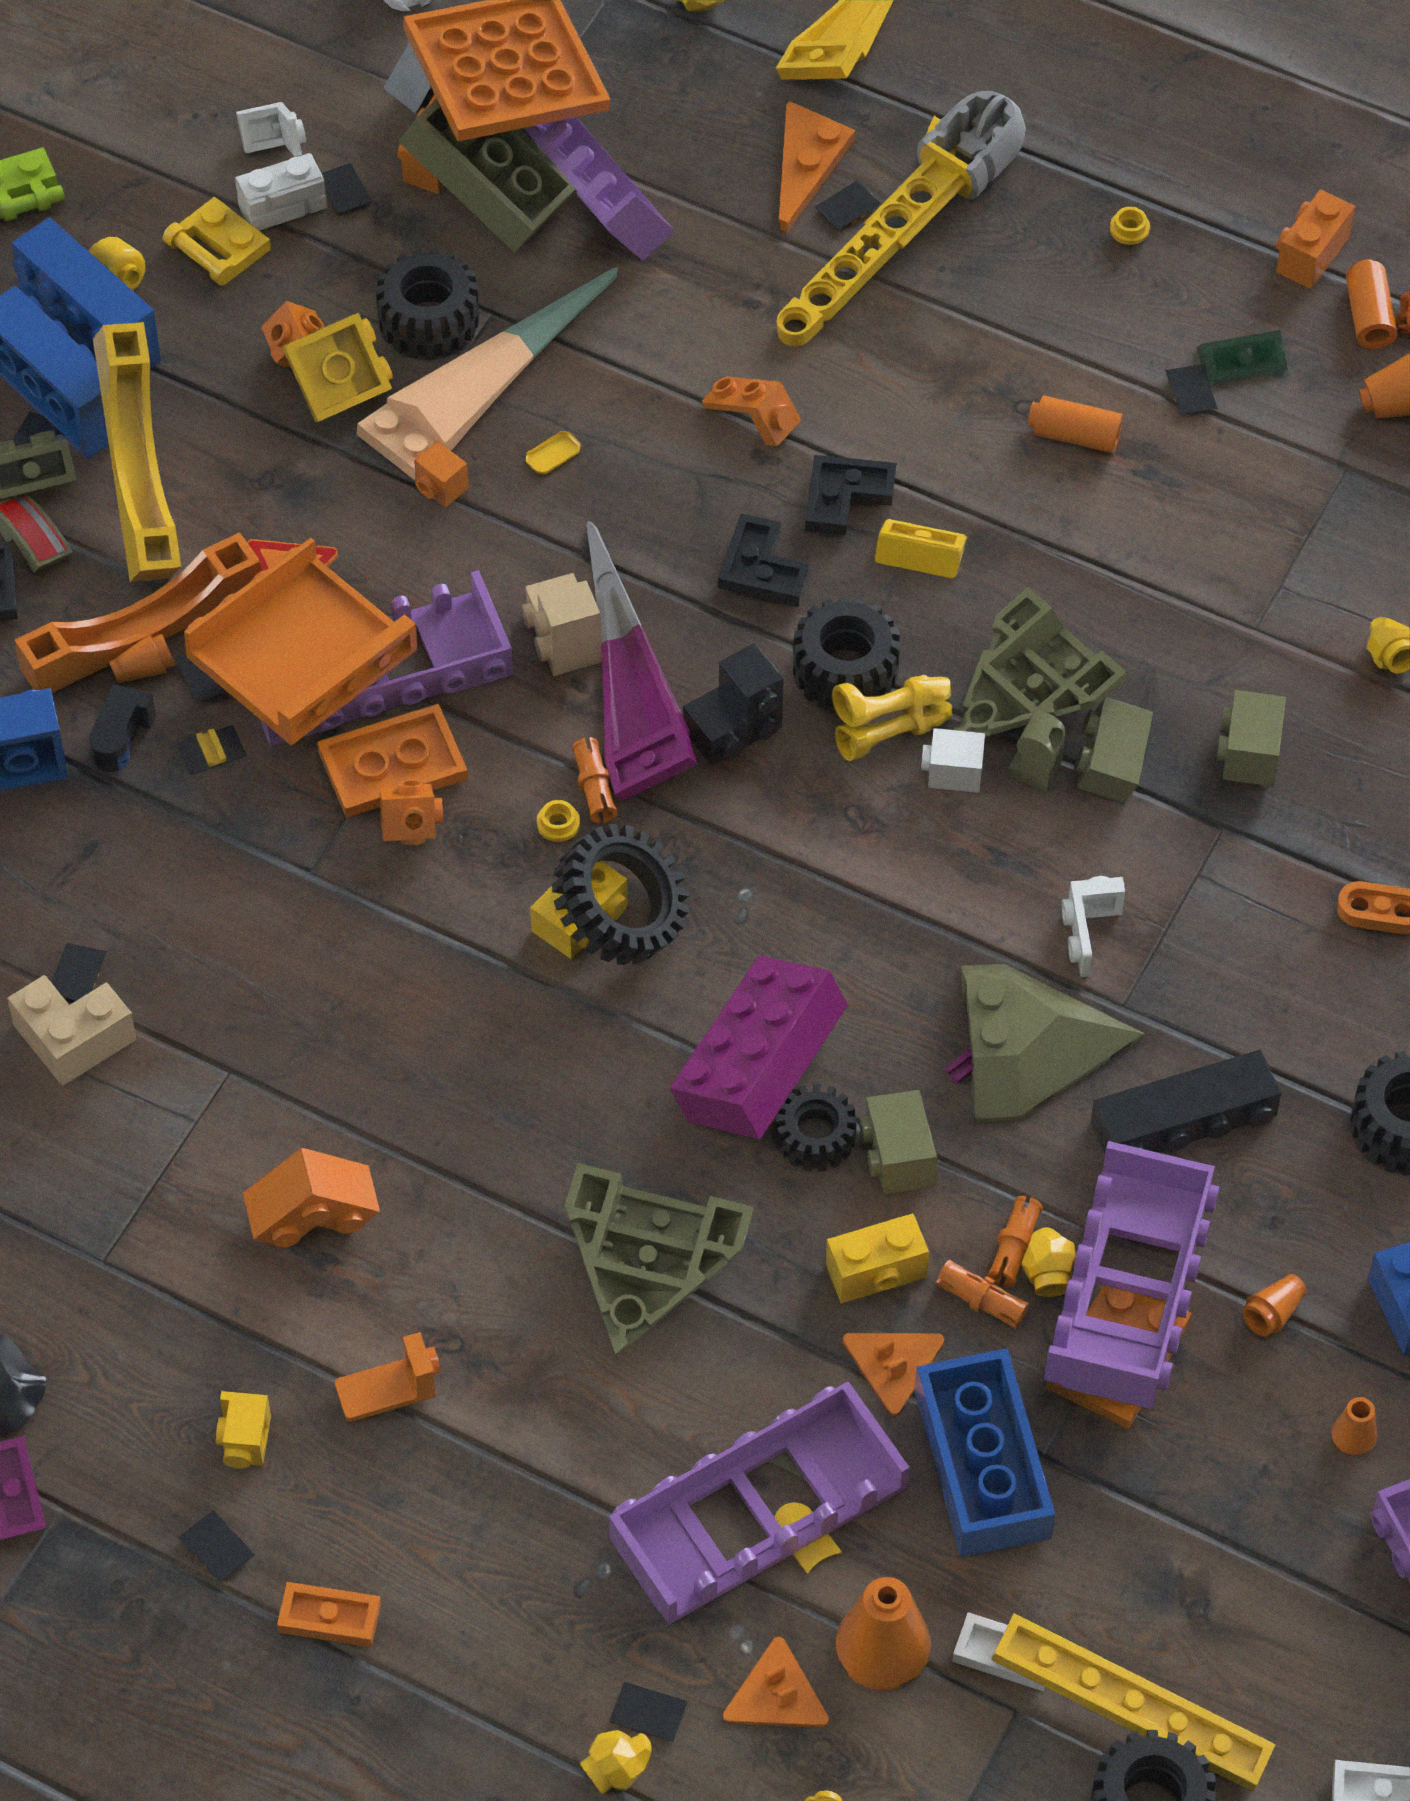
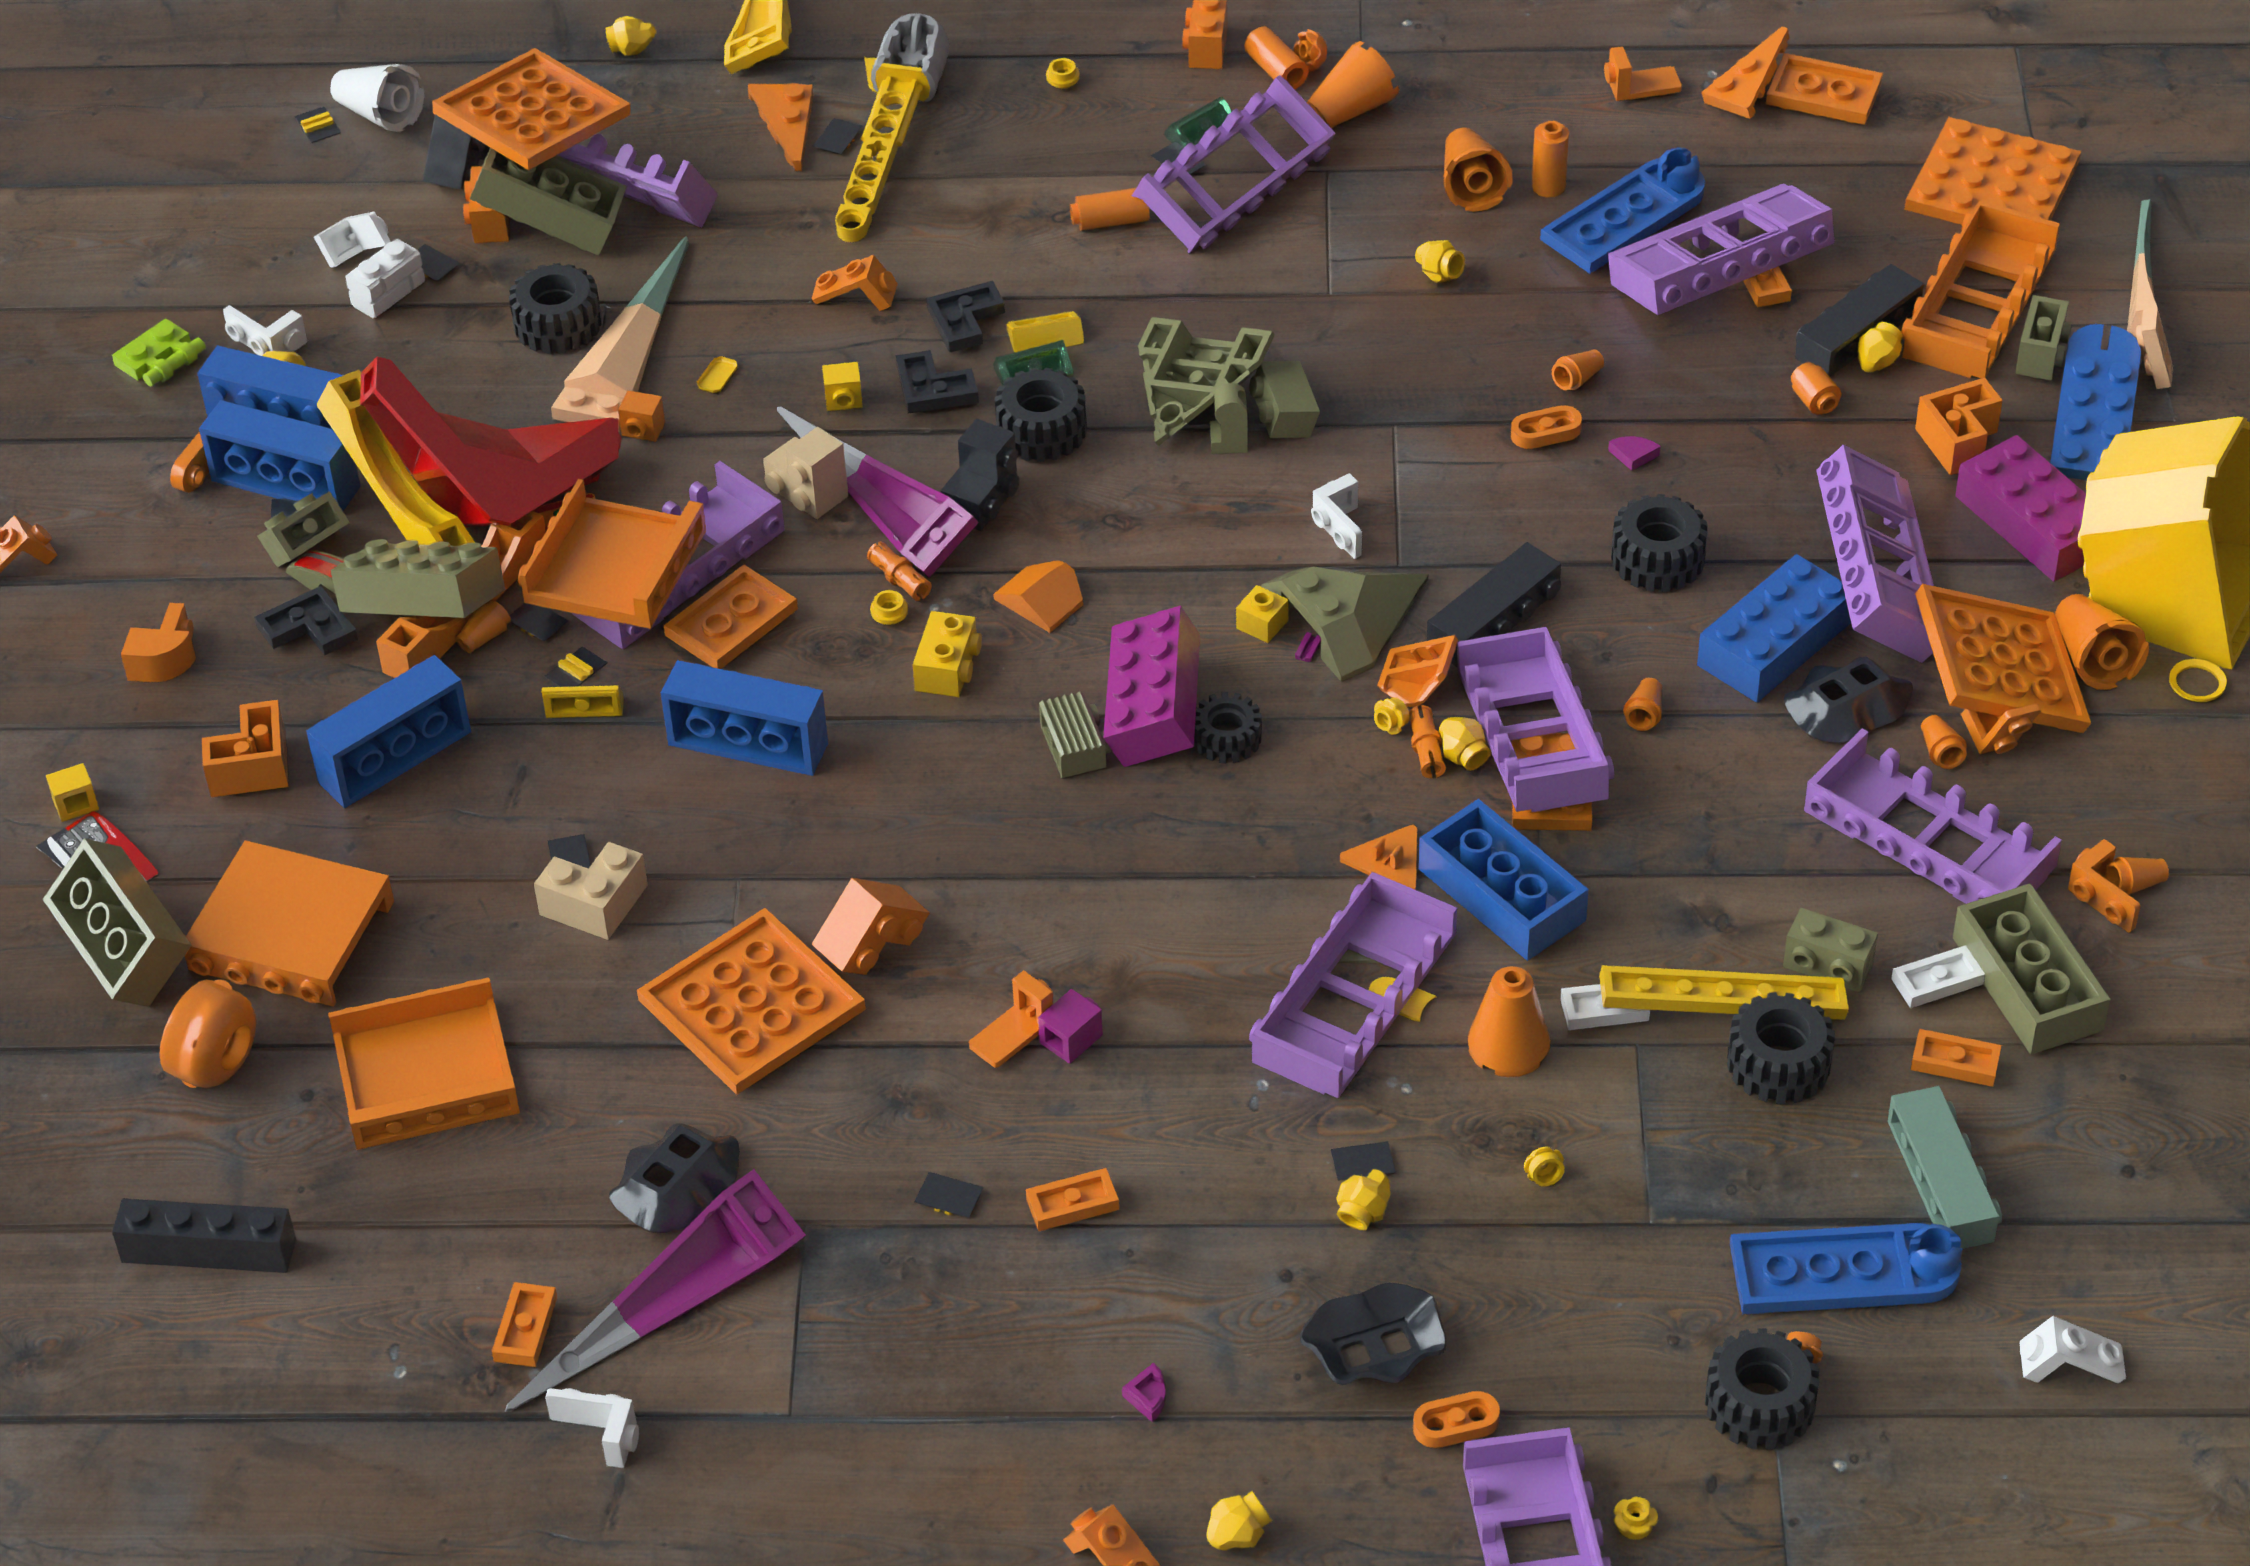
camera: 25 degrees left, 10 degrees down
(95, 585) = (418, 579): none -> olive brick
(117, 725) = (492, 667): black leg -> none
(134, 222) = (282, 335): none -> white bracket
(152, 1227) = (751, 1000): none -> orange plate
(190, 796) = (582, 701): none -> yellow slope
(225, 234) = (352, 330): yellow plate -> none
(233, 476) = (478, 468): none -> red panel
(243, 1428) = (919, 1102): yellow brick -> none
(287, 325) = (464, 366): orange brick -> none
(327, 893) = (745, 717): none -> blue brick
(338, 366) = (514, 370): yellow plate -> none
(409, 812) = (770, 642): orange brick -> none
(445, 1411) = (1070, 1025): none -> magenta brick
(586, 913) = (967, 645): black tyre -> none
(647, 1248) = (1160, 853): olive wedge -> none
(651, 1062) = (1073, 734): none -> olive brick
(665, 527) = (842, 386): none -> yellow plate
(726, 874) = (1043, 594): none -> orange slope
(776, 1693) = (1451, 1108): orange piece -> none
(877, 1258) = (1333, 790): yellow brick -> none
(884, 586) = (1045, 356): none -> clear green slope
(900, 1142) = (1300, 707): olive brick -> none
(921, 705) = (1074, 440): yellow piece -> none
(935, 1004) = (1262, 614): none -> yellow plate
(954, 760) = (1169, 452): white brick -> none
(982, 1294) = (1426, 784): orange pin -> none
(994, 1193) = (1391, 715): none -> yellow plate
(1054, 1149) = (1417, 669): none -> orange slope
(1197, 488) = (1292, 109): none -> medium lavender window
(1253, 737) = (1381, 354): olive brick -> none
(1281, 1704) = (1830, 948): none -> olive brick
(1356, 1427) = (1759, 754): orange cone -> none

